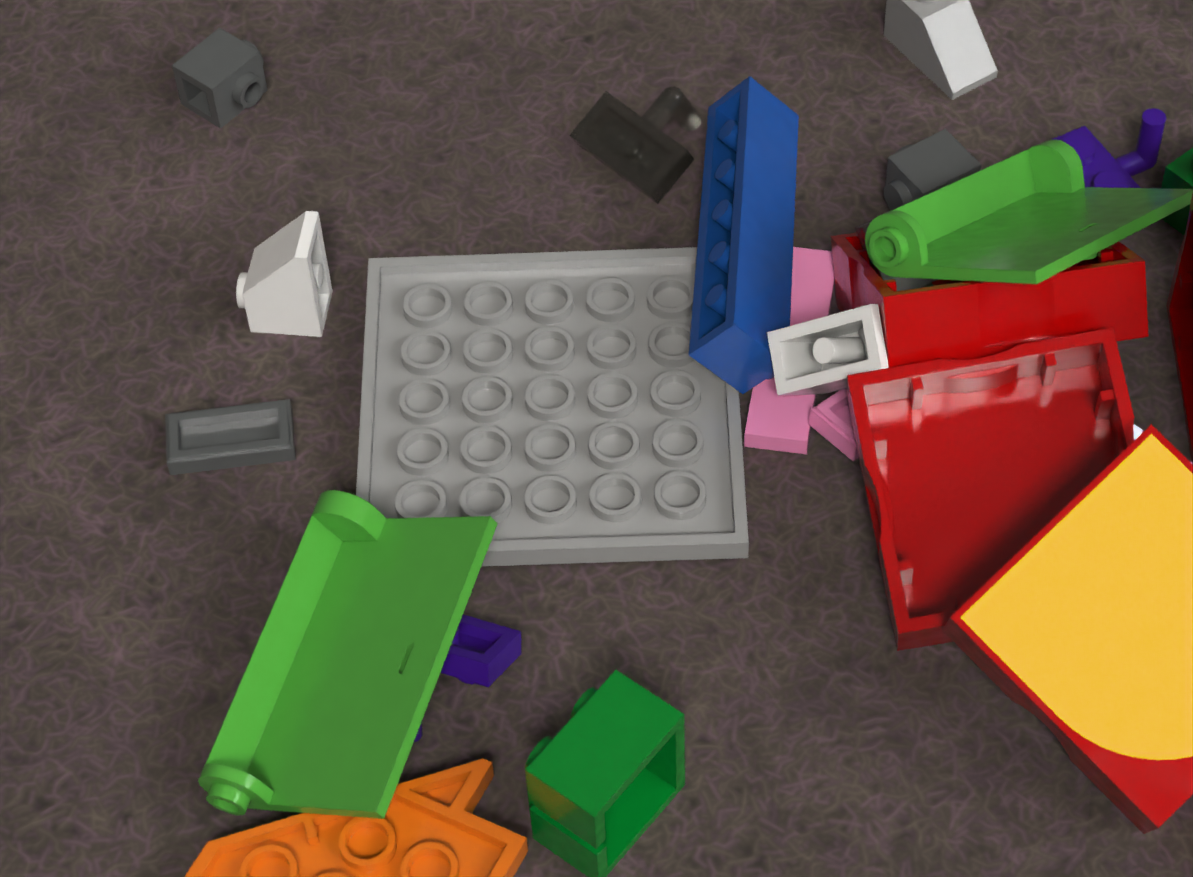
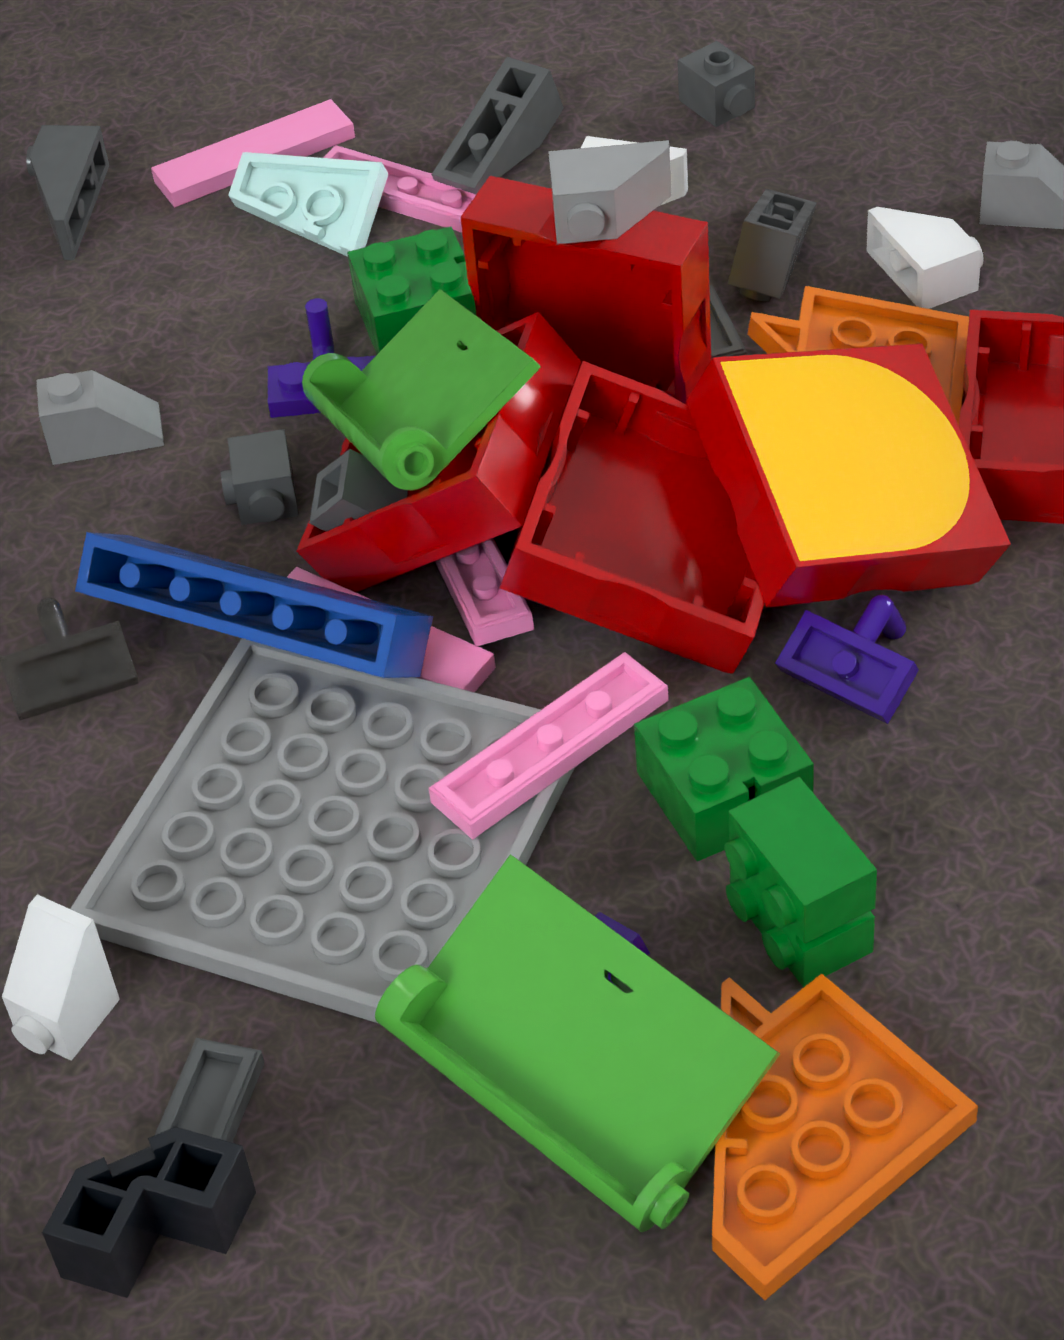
camera: 65 degrees left, 5 degrees down
(85, 415) = (175, 1188): none -> black brick
(700, 521) = (548, 745): none -> bright pink tile
(754, 665) = (709, 753): none -> green piece
(825, 350) = (461, 562): white slope -> none
(936, 741) = (850, 662): none -> dark purple plate

